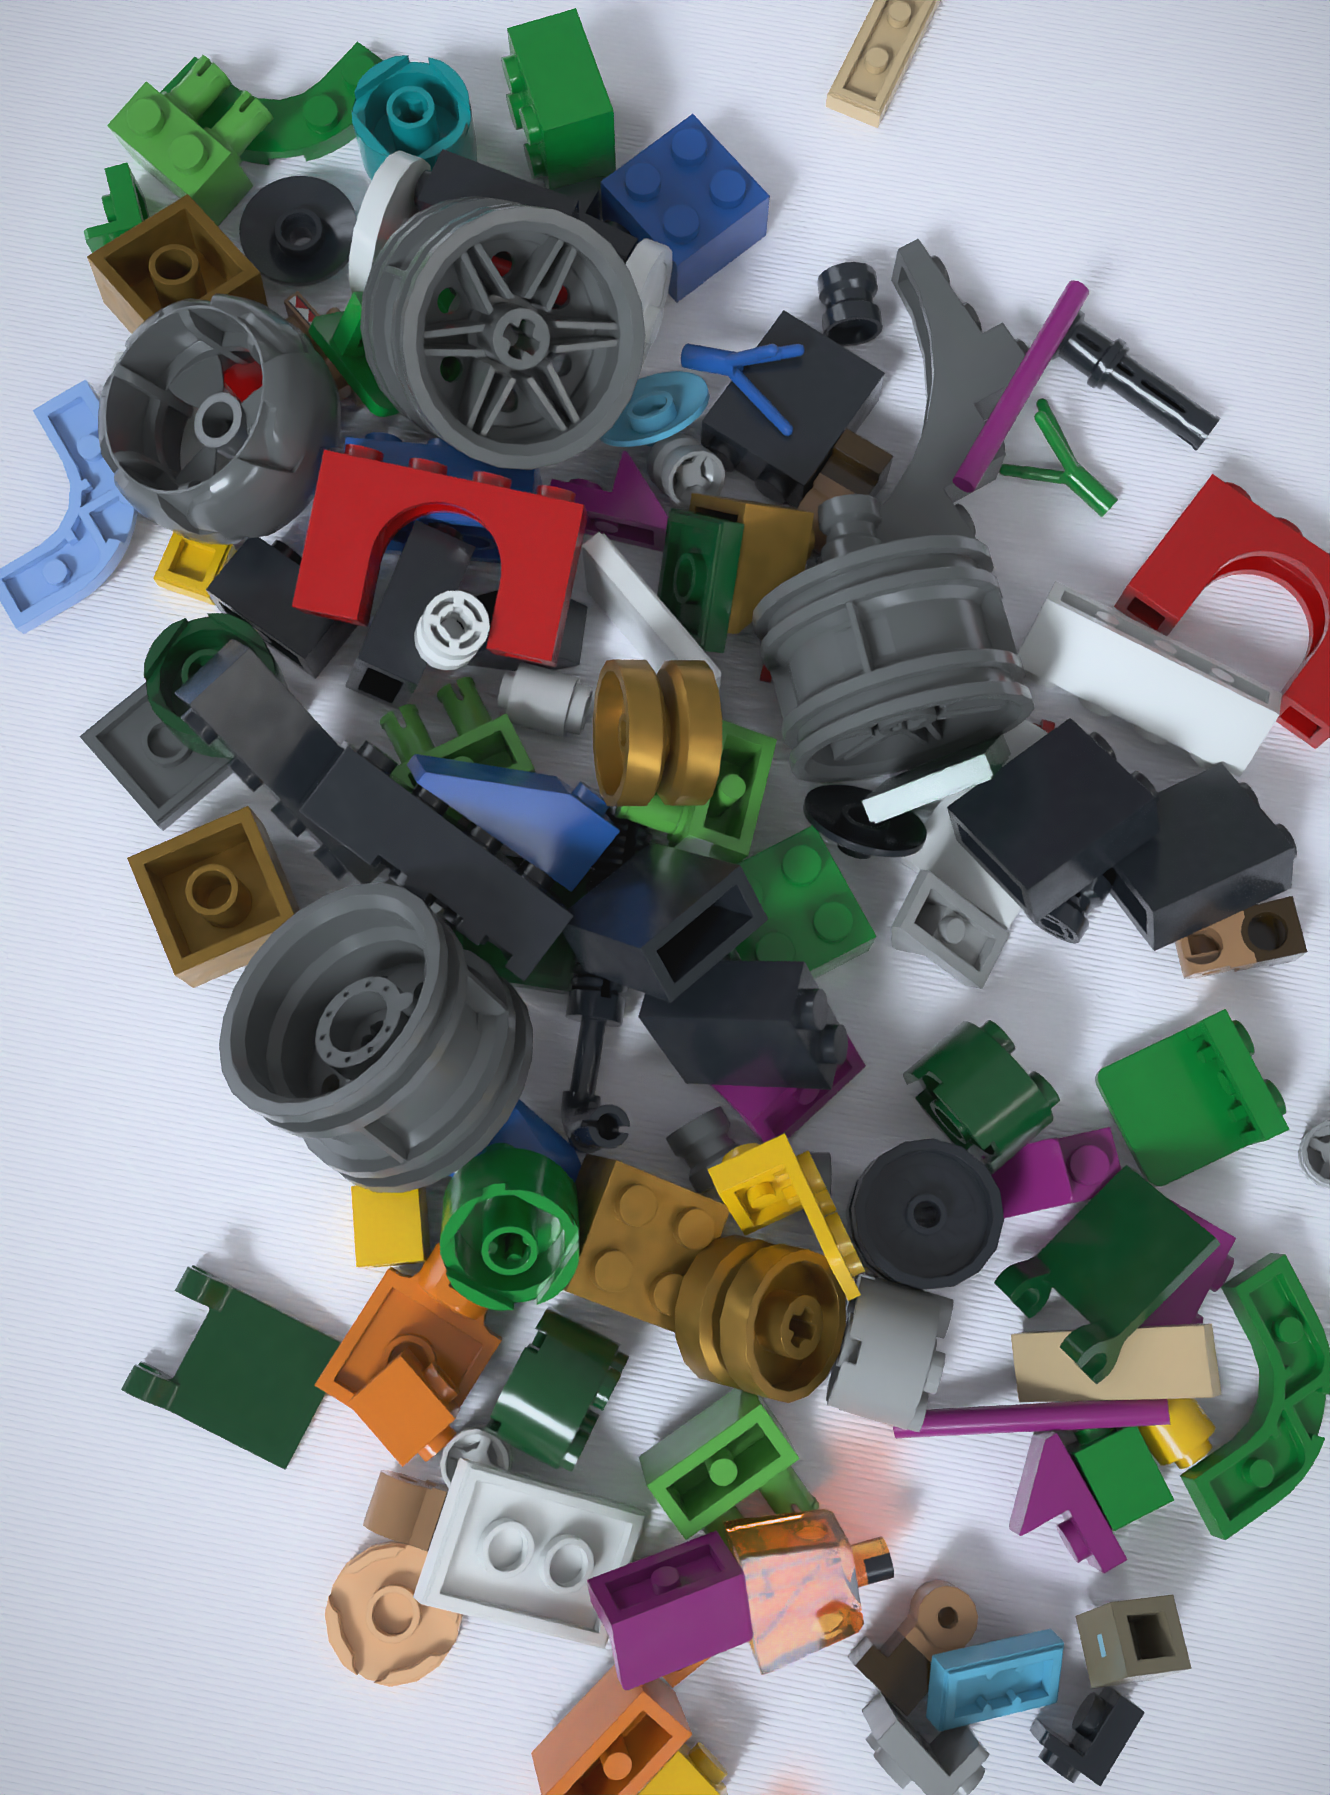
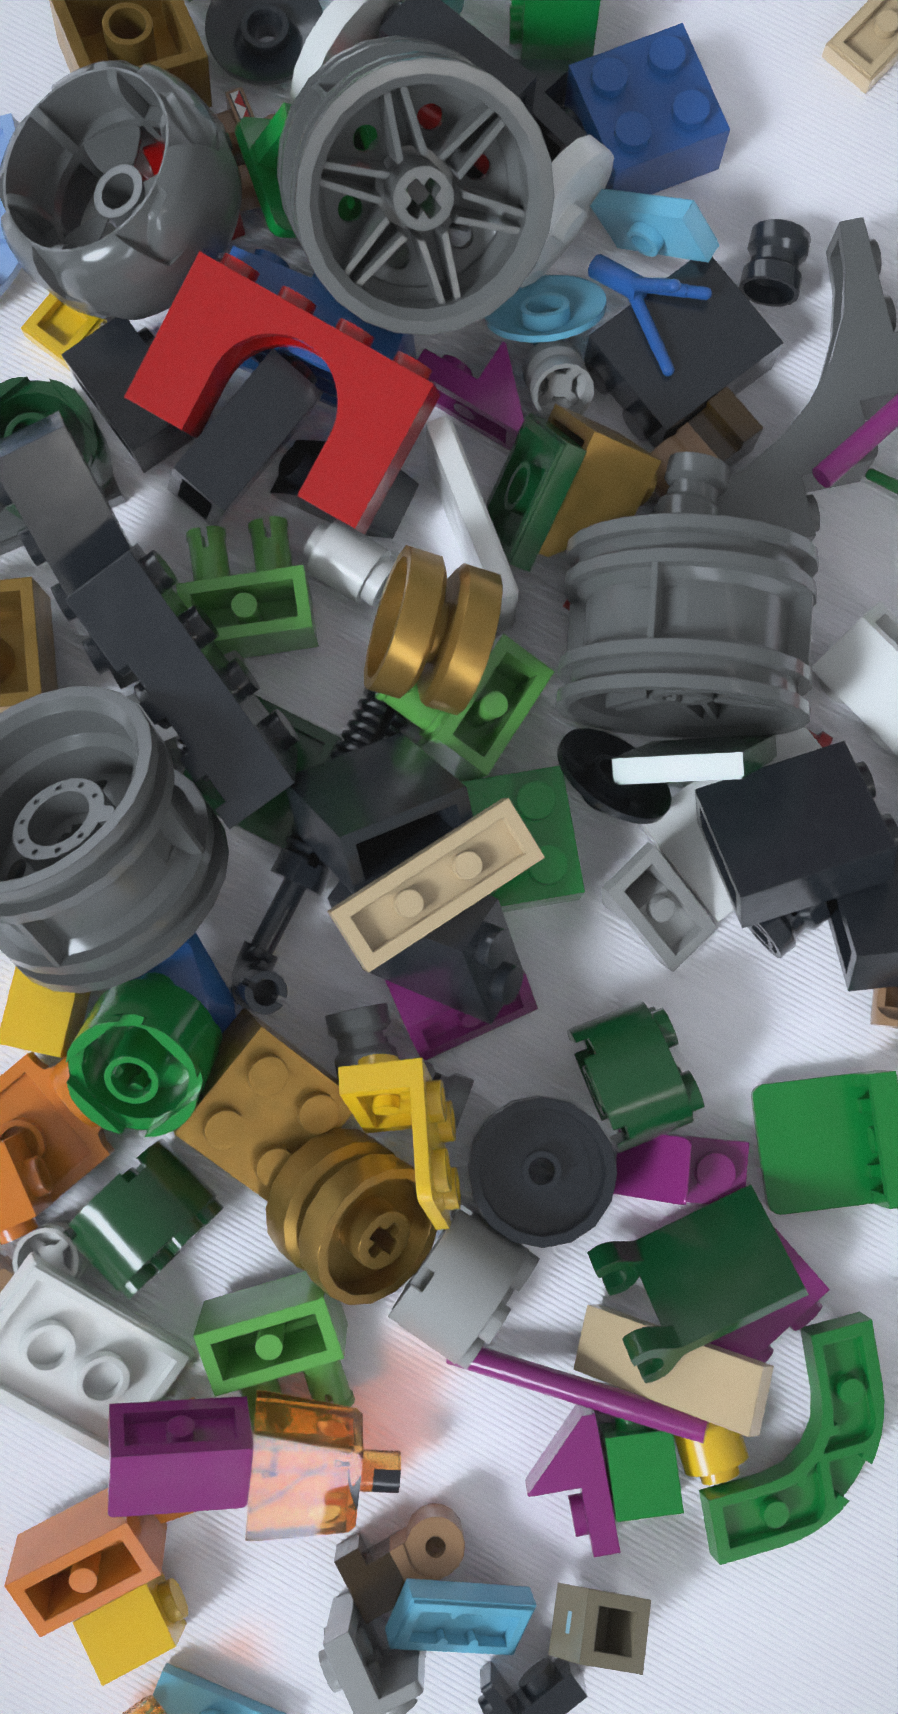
camera: 20 degrees right, 5 degrees up
(446, 643) = (262, 479): white wheel -> none
(526, 811) = (287, 665): blue slope -> none
(729, 302) = (655, 224): none -> medium azure plate
(742, 966) = (435, 884): none -> tan plate

